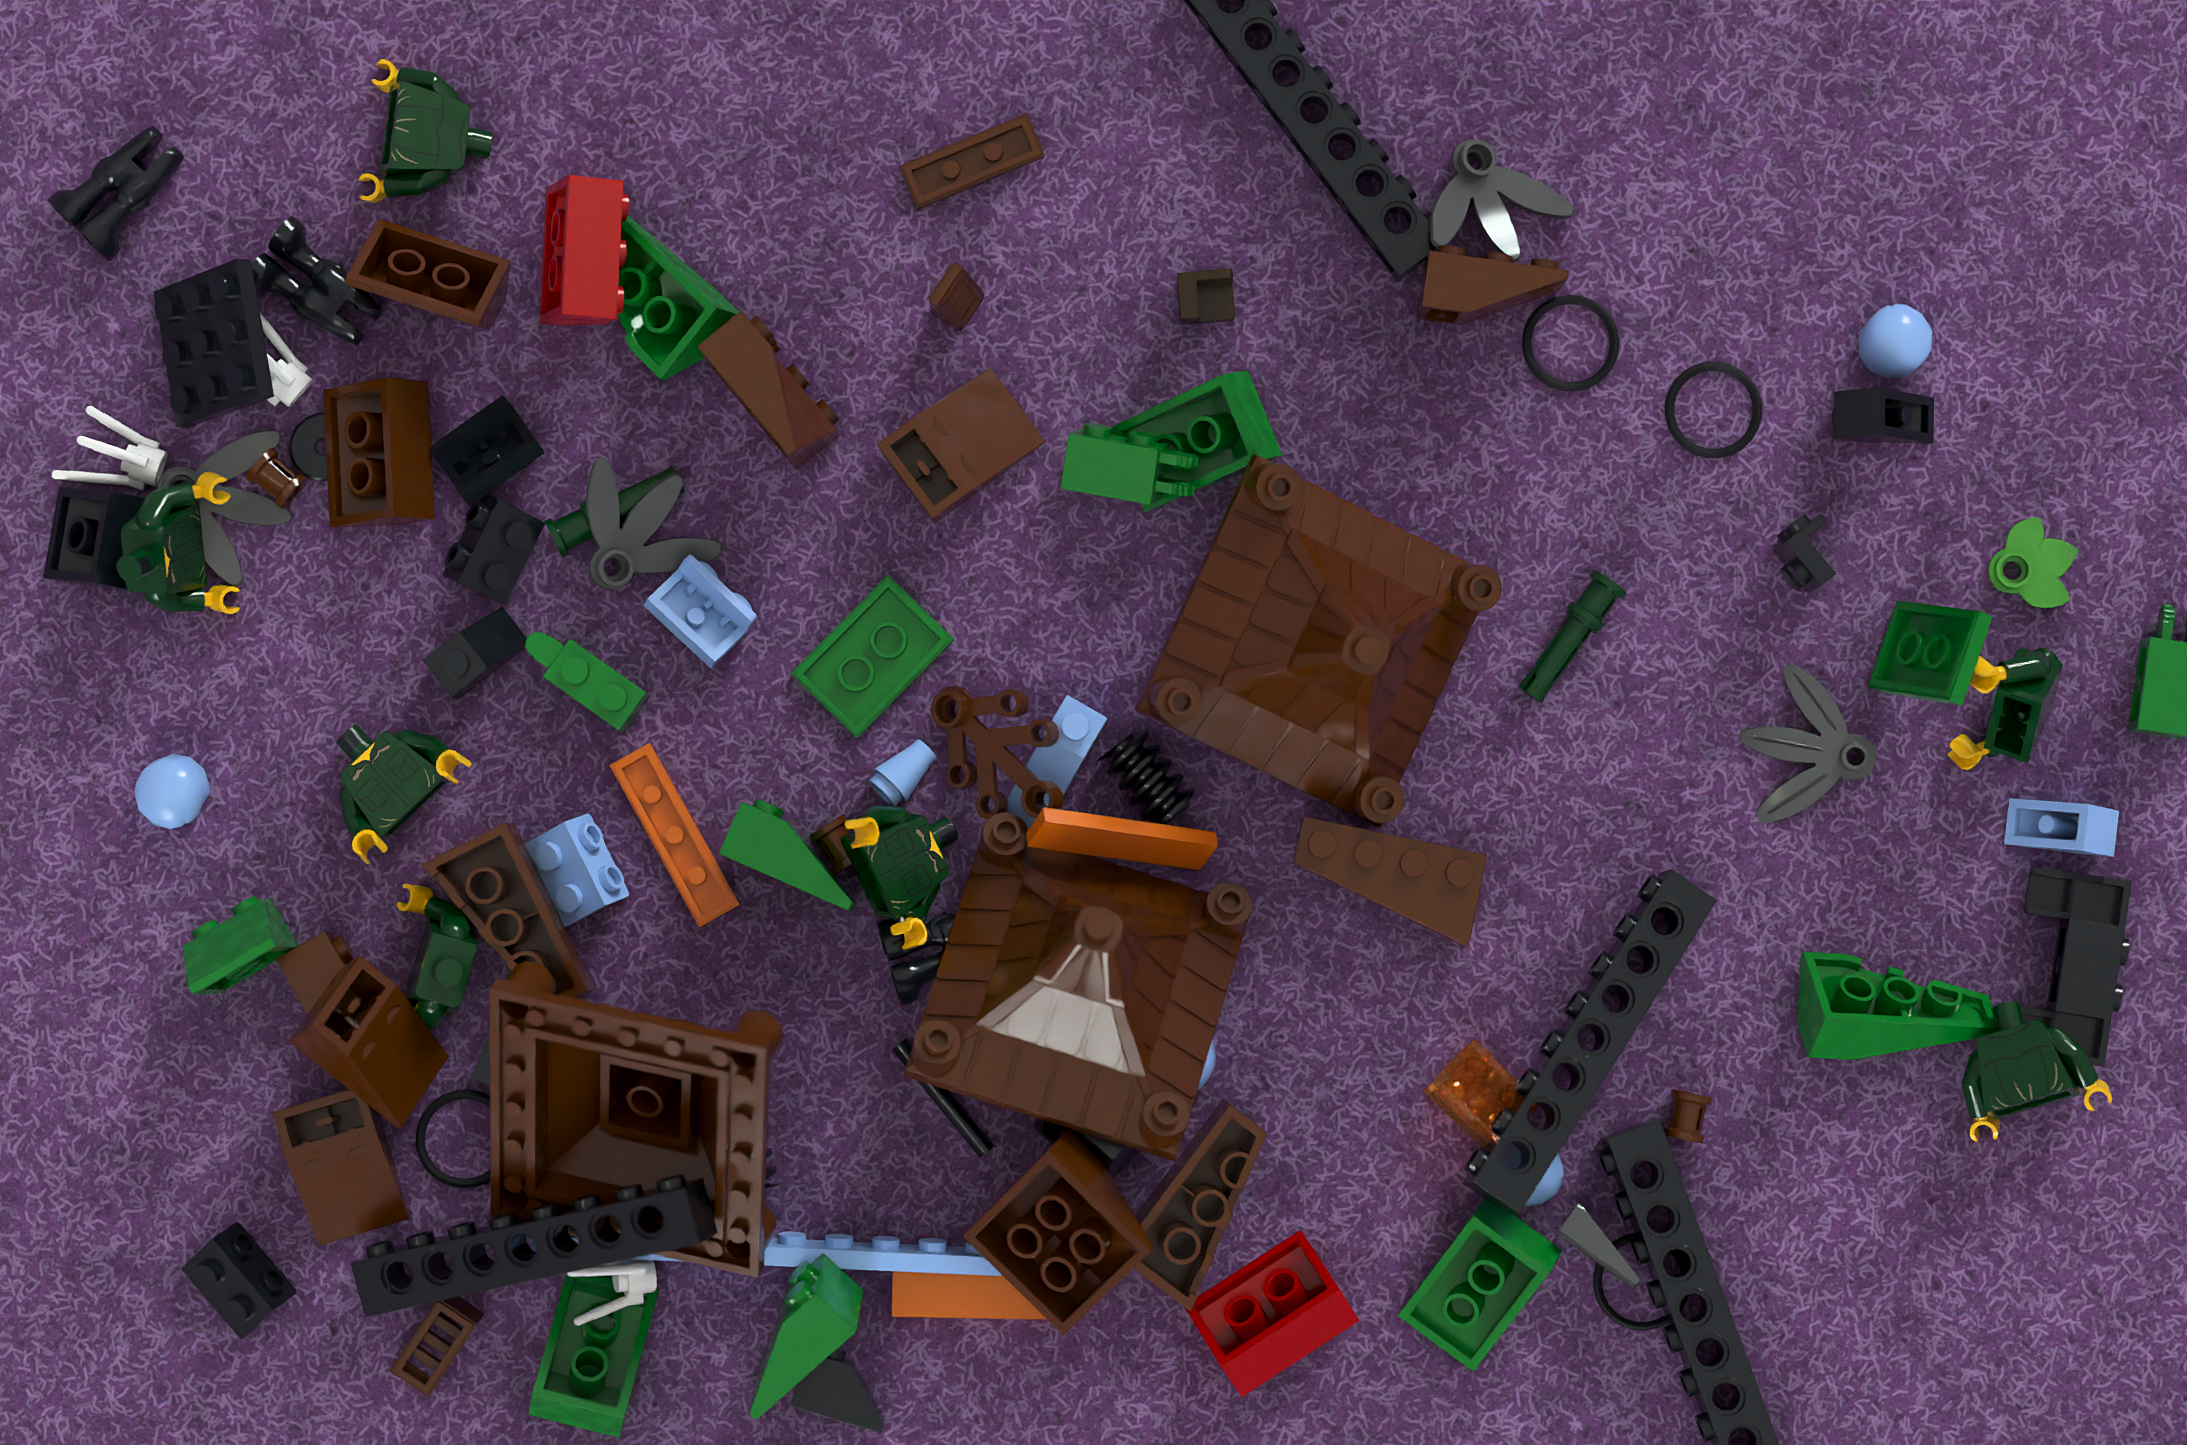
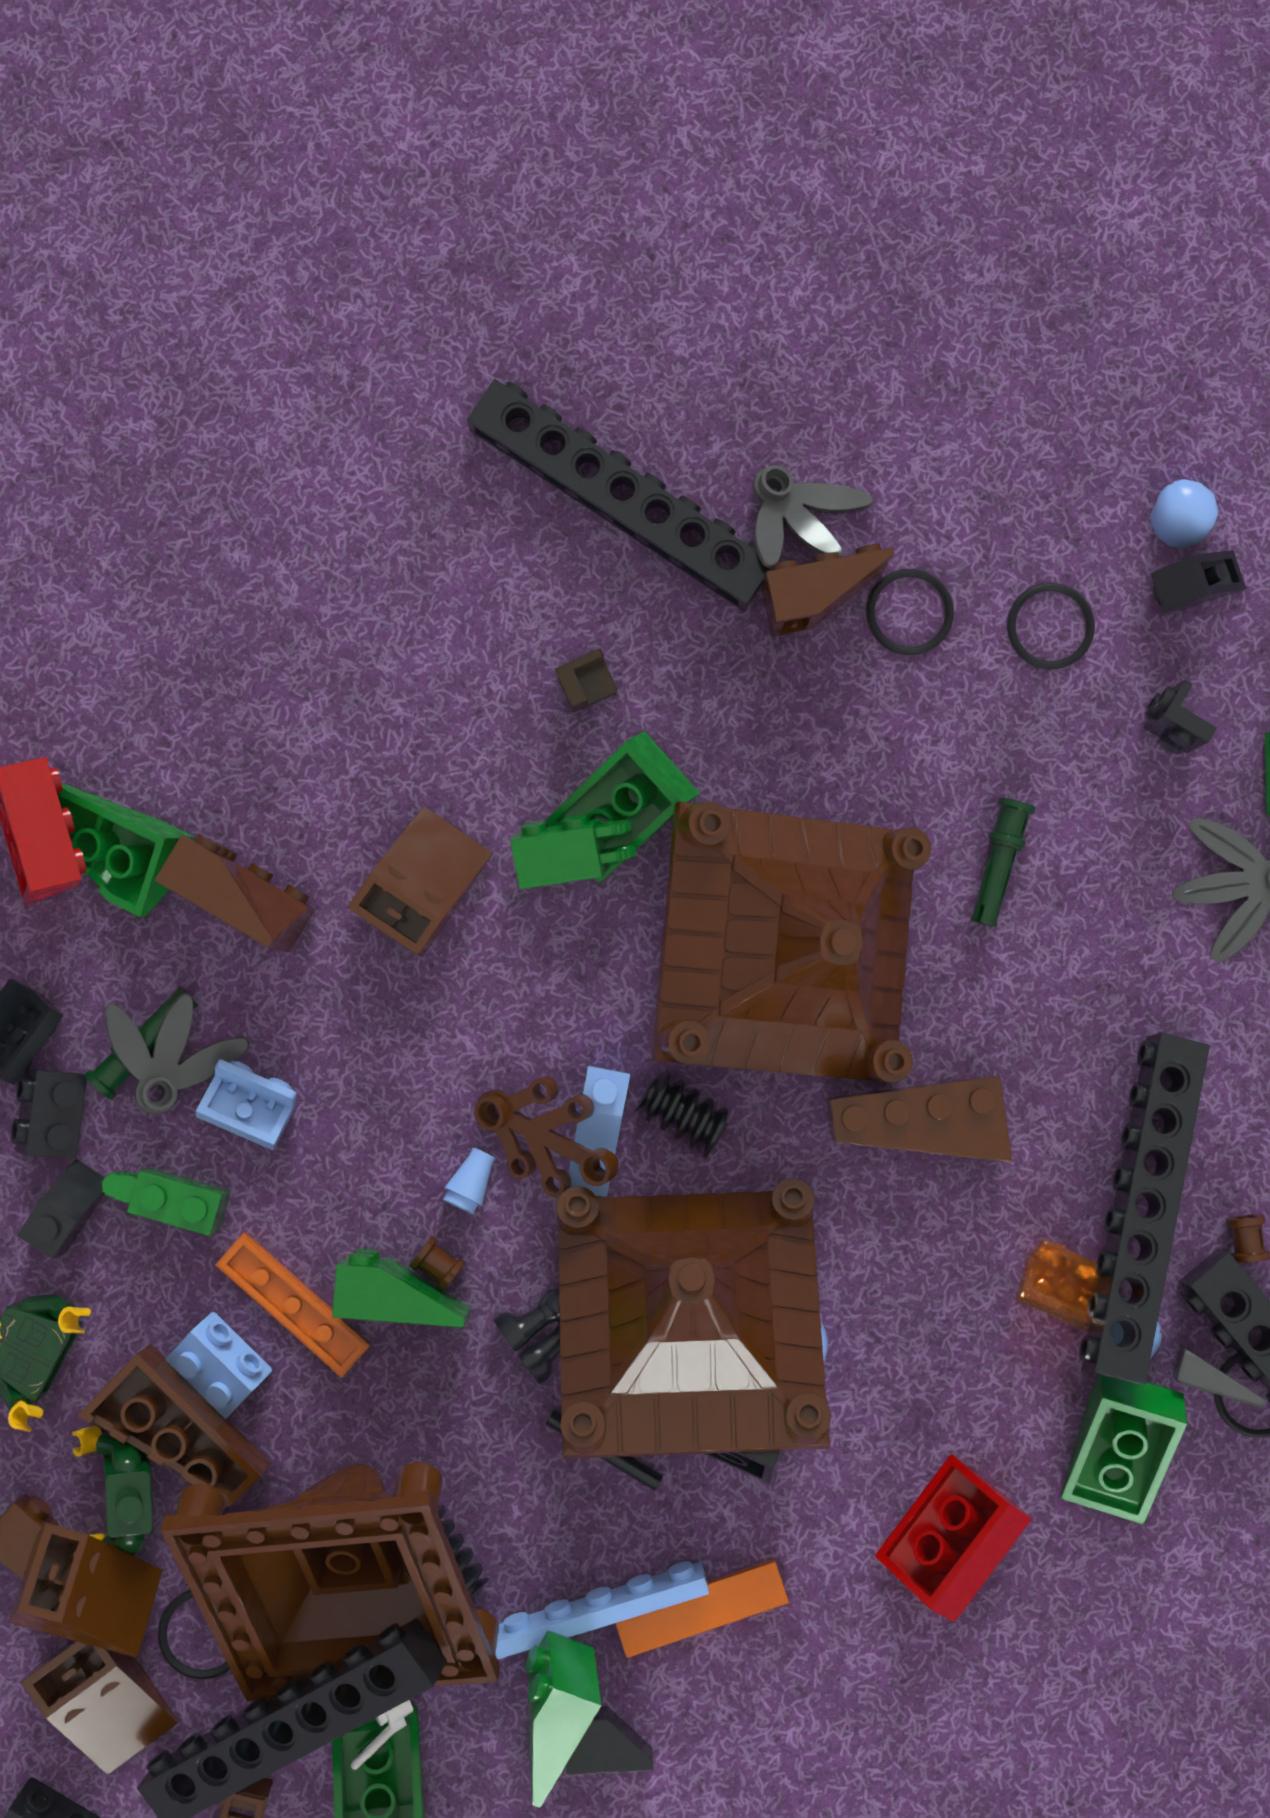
camera: 20 degrees left, 0 degrees up
(872, 656) = (409, 1090): green tile -> none
(899, 865) = (496, 1265): dark green torso -> none
(955, 297) = (371, 756): reddish brown slope -> none
(972, 161) = (346, 636): reddish brown tile -> none
(1061, 1233) = (750, 1543): reddish brown slope -> none
(1121, 838) = (678, 1175): orange tile -> none
(1197, 1201) = (851, 1479): reddish brown wedge -> none

